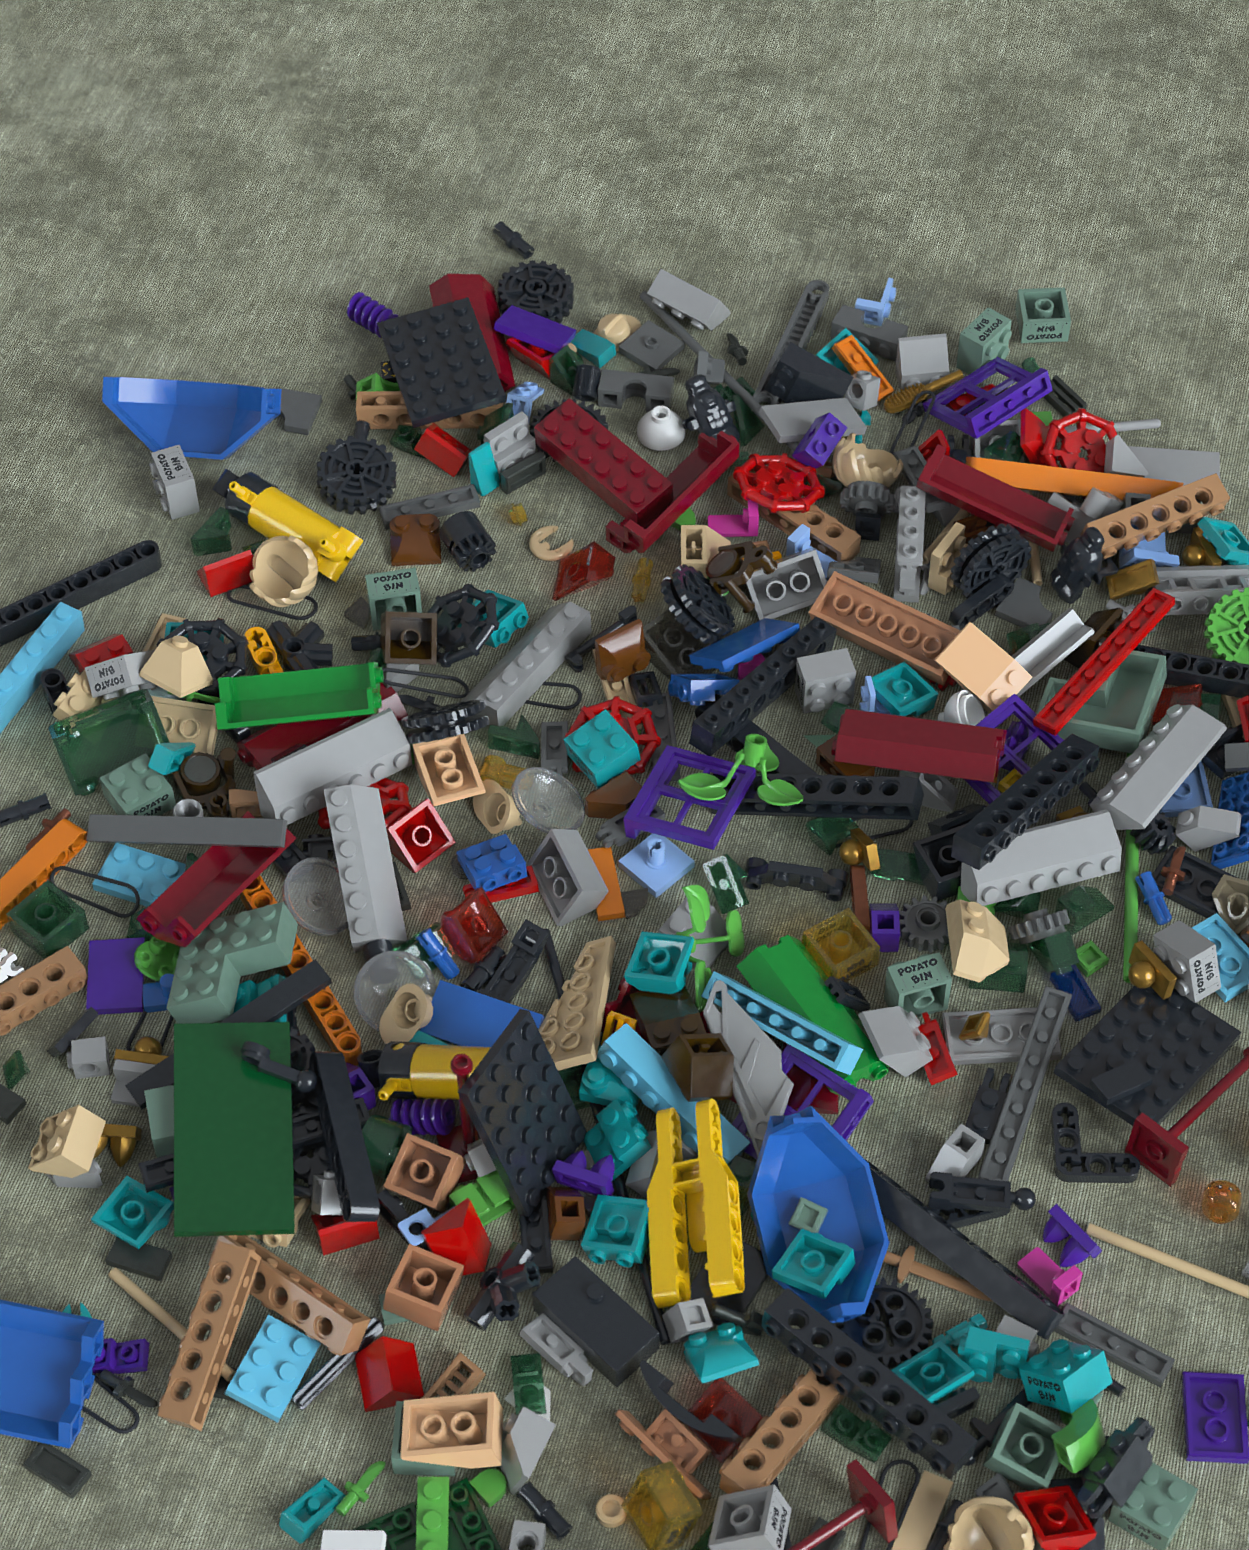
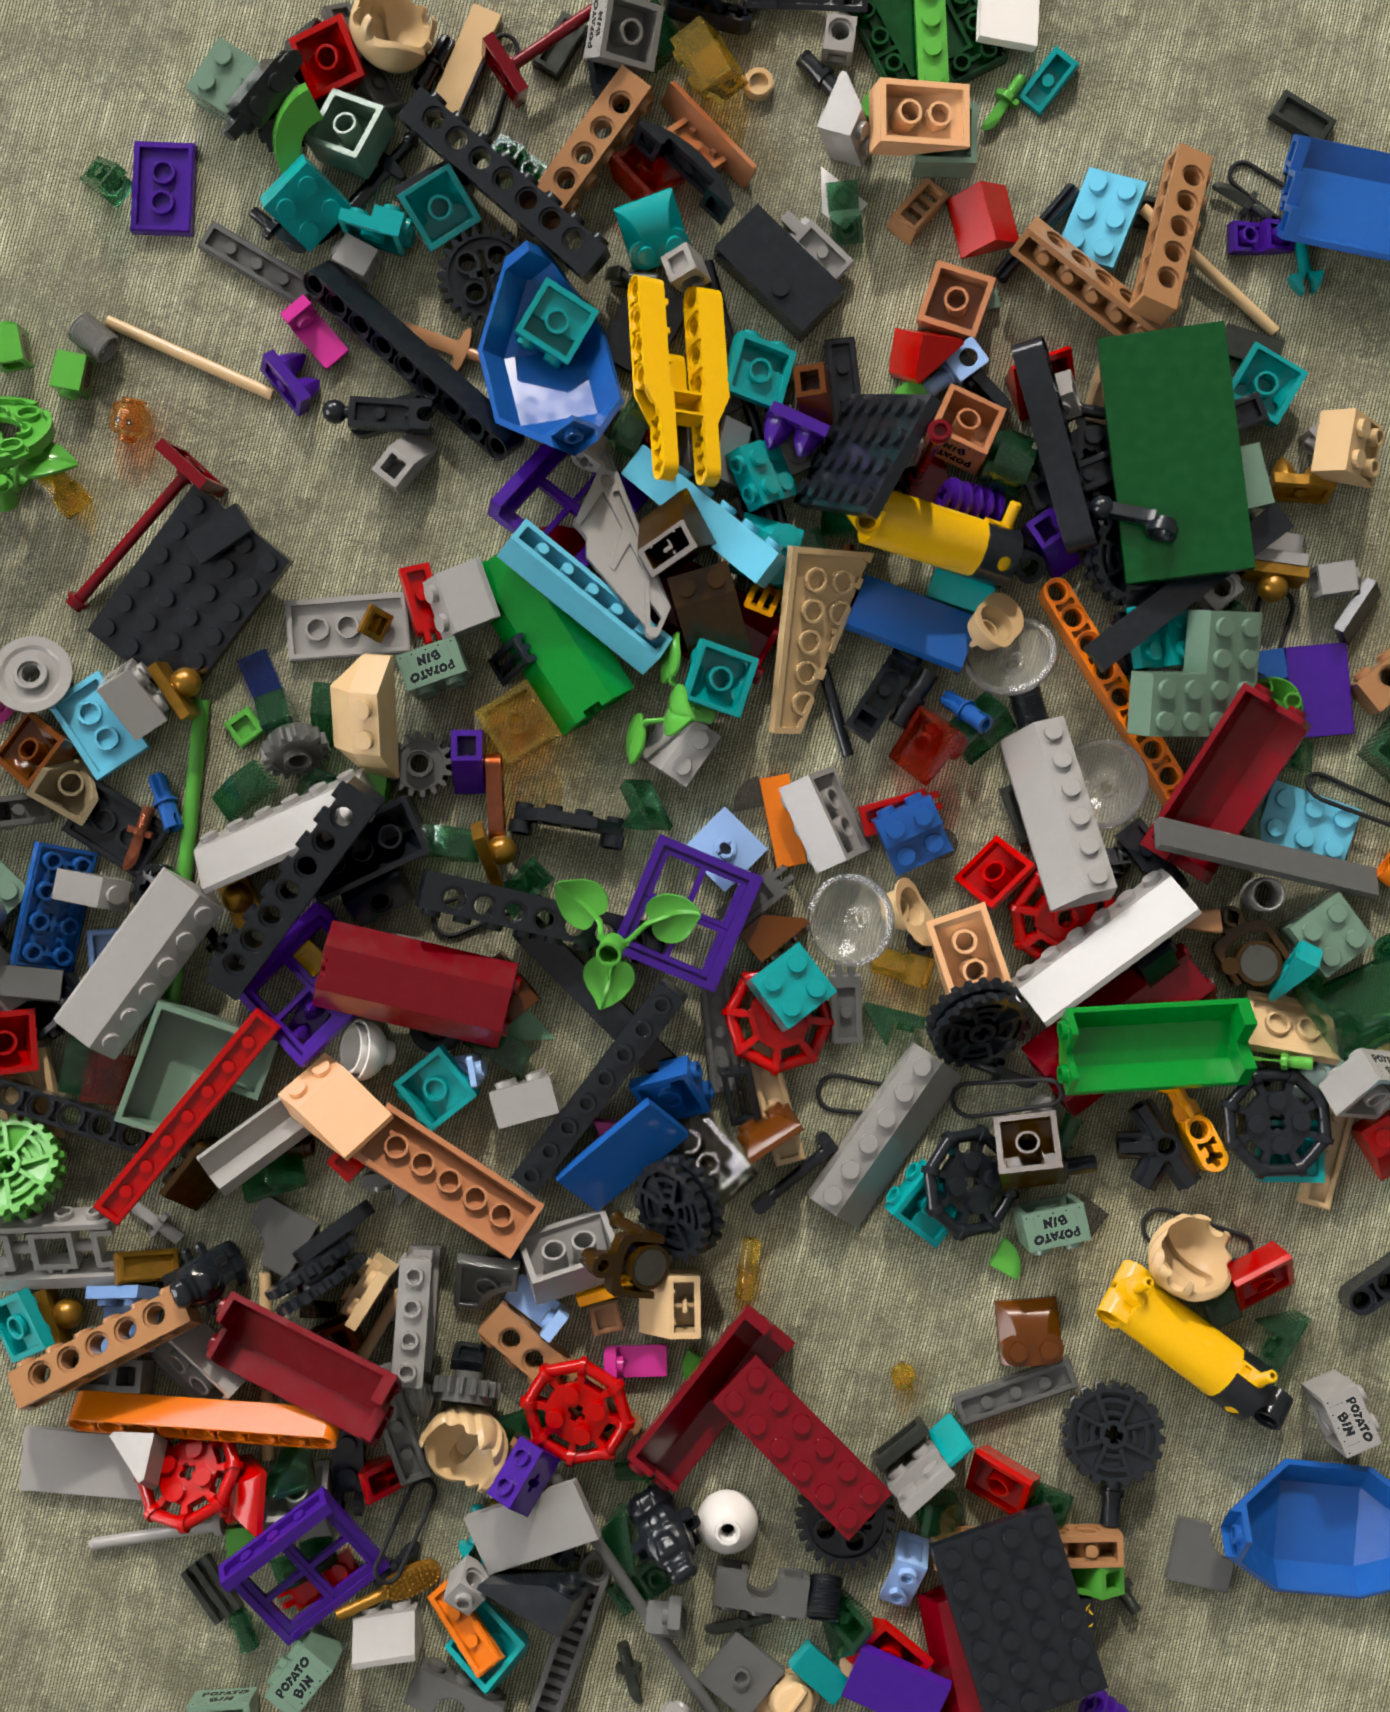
camera: 175 degrees right, 35 degrees up
(177, 667) = (1307, 1080): tan slope -> none
(430, 586) = (1006, 1259): none -> bright green tile
(467, 541) = (964, 1319): black gear -> none
(500, 1288) = (874, 303): black piece -> none
(542, 550) = (874, 1320): tan head -> none
(583, 570) = (820, 1275): clear red slope -> none
(808, 1216) = (560, 385): sand green tile -> none
(954, 1334) = (411, 272): teal axle -> none
(987, 1106) = (368, 535): black hinge -> none
(1025, 1085) = (325, 558): dark grey tile -> none
(1074, 1157) = (280, 480): black beam -> none
(1100, 504) = (172, 1375): light grey axle -> none

